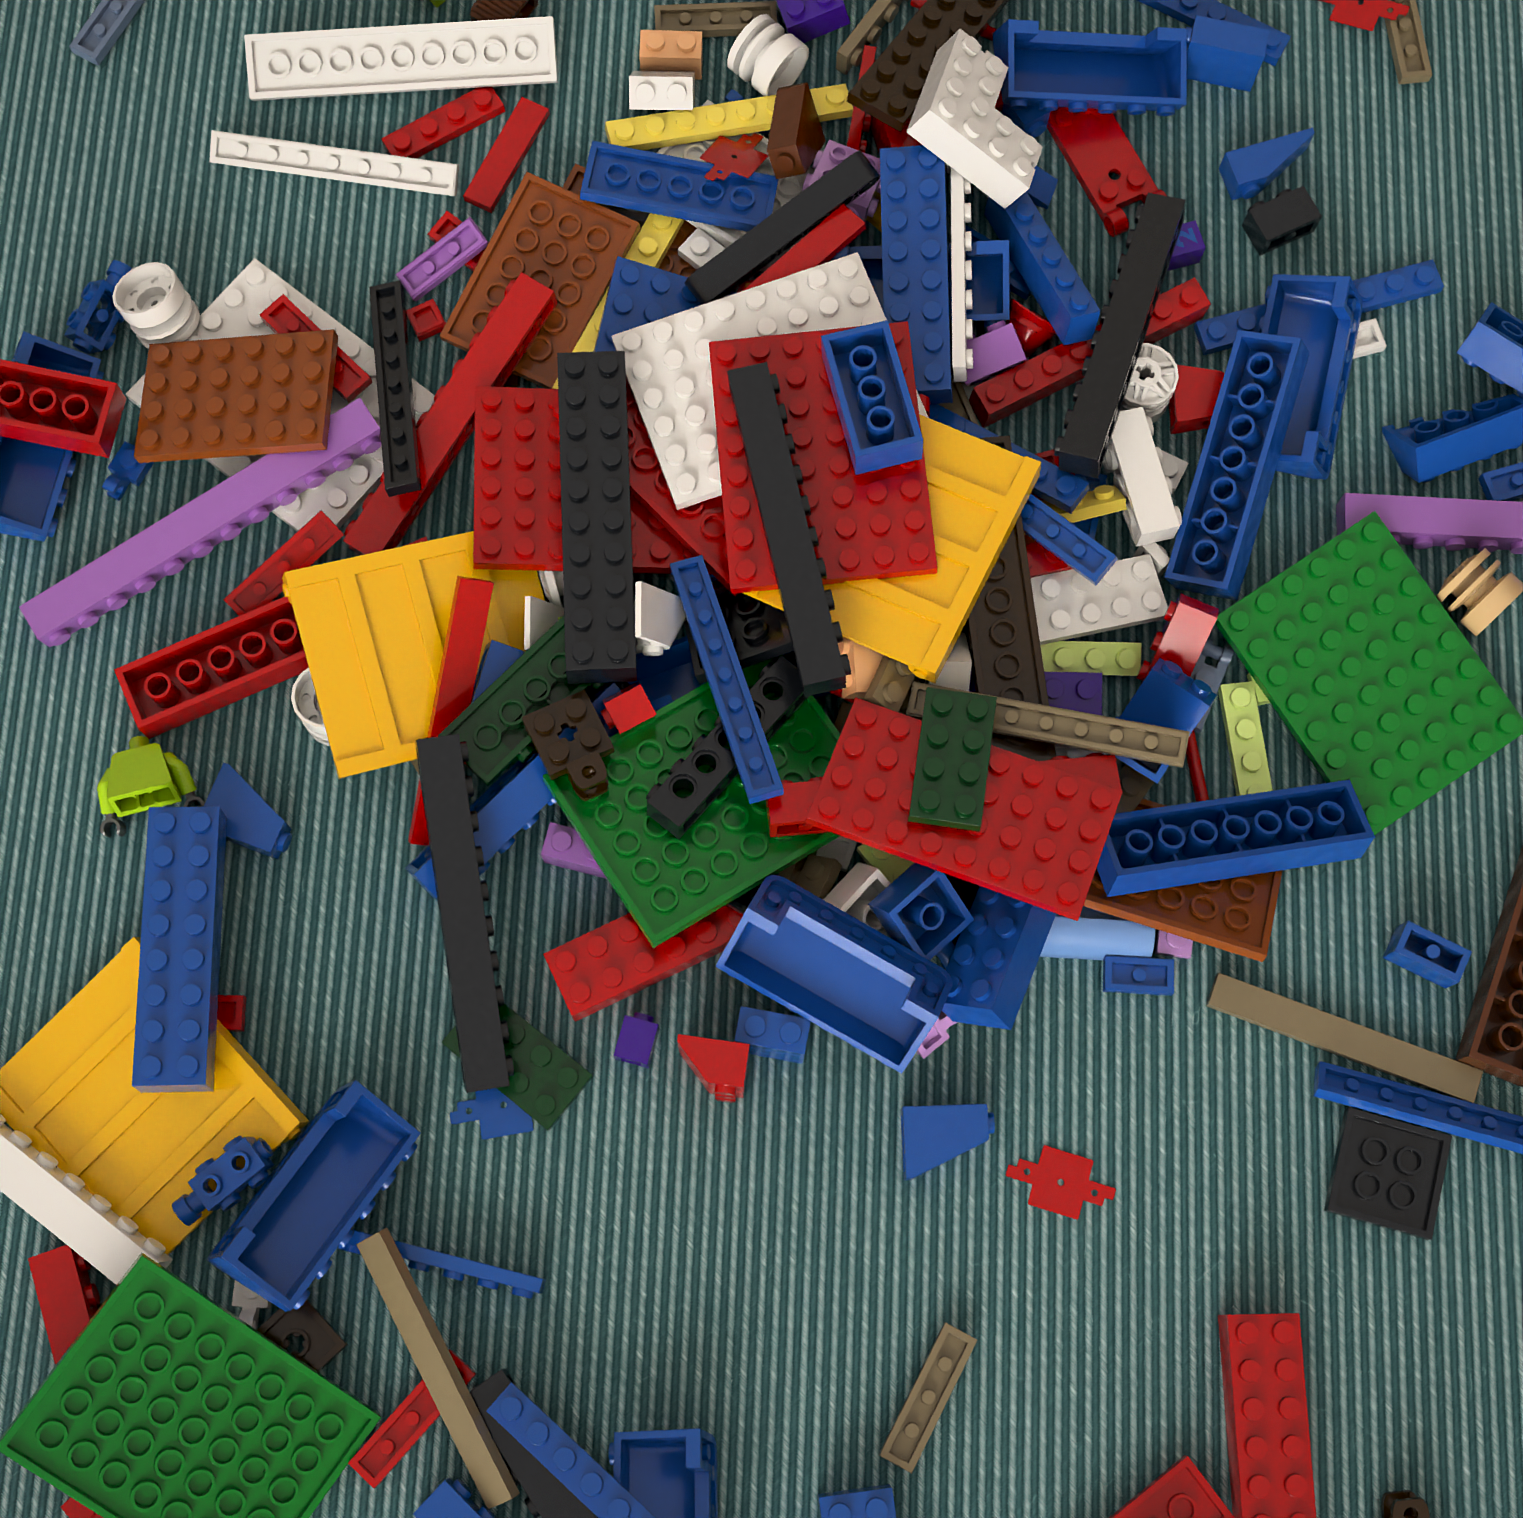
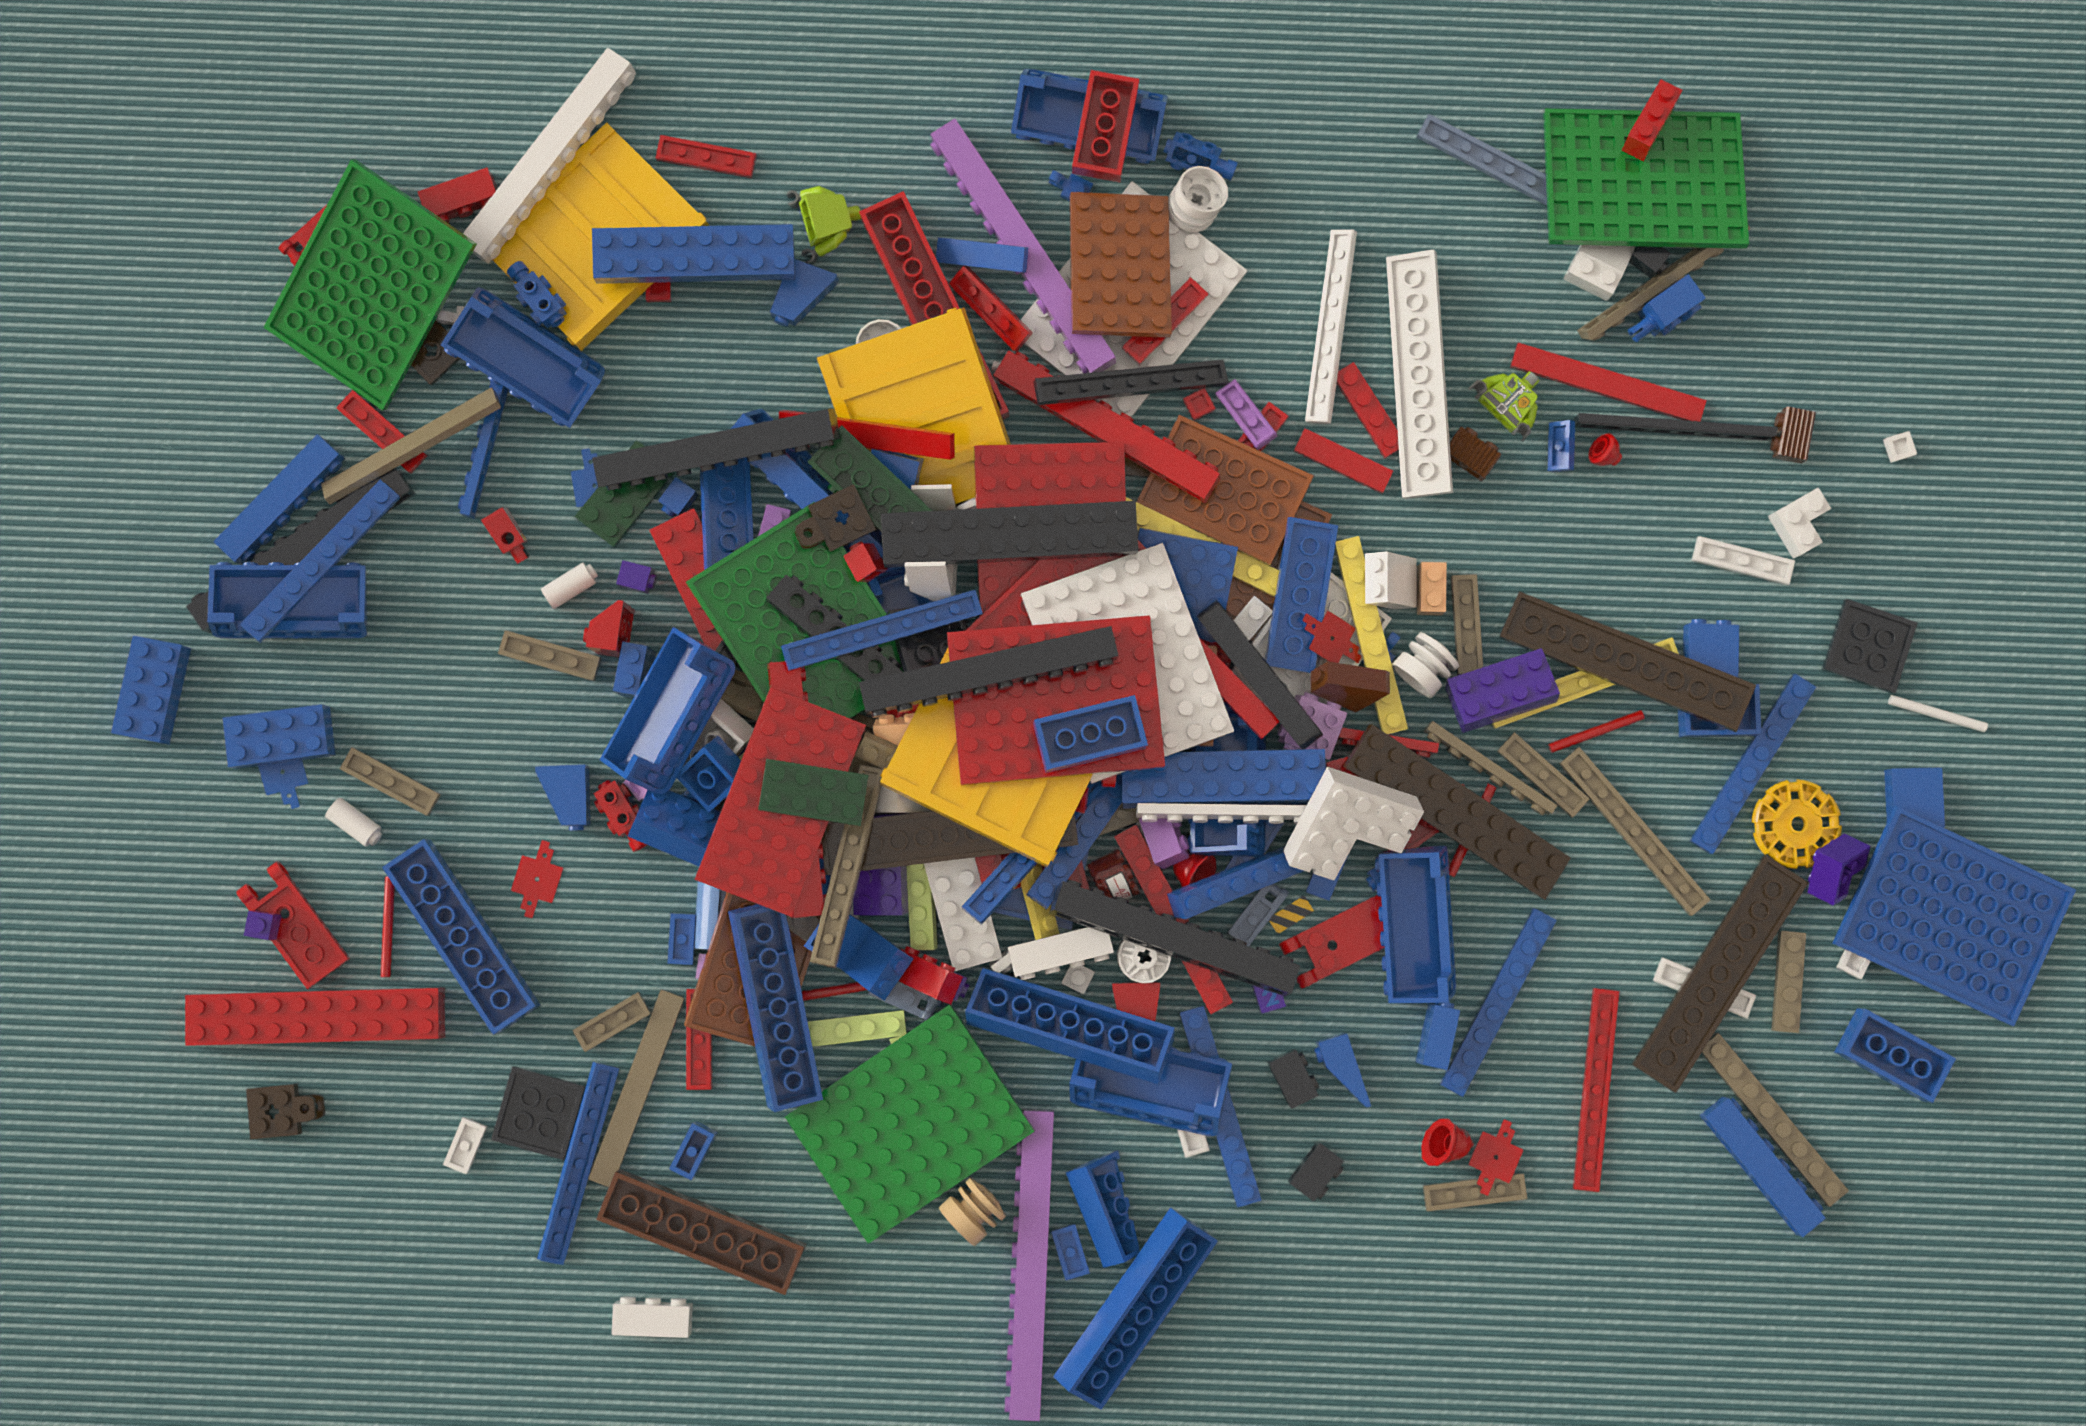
camera: 90 degrees right, 10 degrees up
(41, 949) = (706, 156): none -> red tile
(210, 569) = (982, 254): none -> blue tile
(527, 983) = (677, 498): none -> blue brick
(556, 909) = (725, 510): none -> blue plate
(557, 1231) = (499, 525): none -> red torso
(645, 1135) = (569, 585): none -> white brick
(746, 1164) = (549, 655): none -> dark tan plate
(964, 1064) = (616, 808): none -> red brick
(989, 1449) = (354, 822): none -> white brick
(1039, 417) = (1113, 876): none -> clear red brick
(1076, 225) = (1291, 914): none -> sticker
(1091, 265) = (1257, 914): none -> sand blue plate
(1136, 1399) = (387, 933): none -> red bar
(1149, 1284) = (461, 936): none -> blue brick
(1256, 1071) = (612, 1021): none -> dark tan plate
(1283, 955) = (697, 1055): none -> red tile
(1350, 55) = (1445, 1143): none -> red piece
(1393, 196) = (1316, 1172): none -> black brick
(1440, 1278) = (465, 1145): none -> white plate

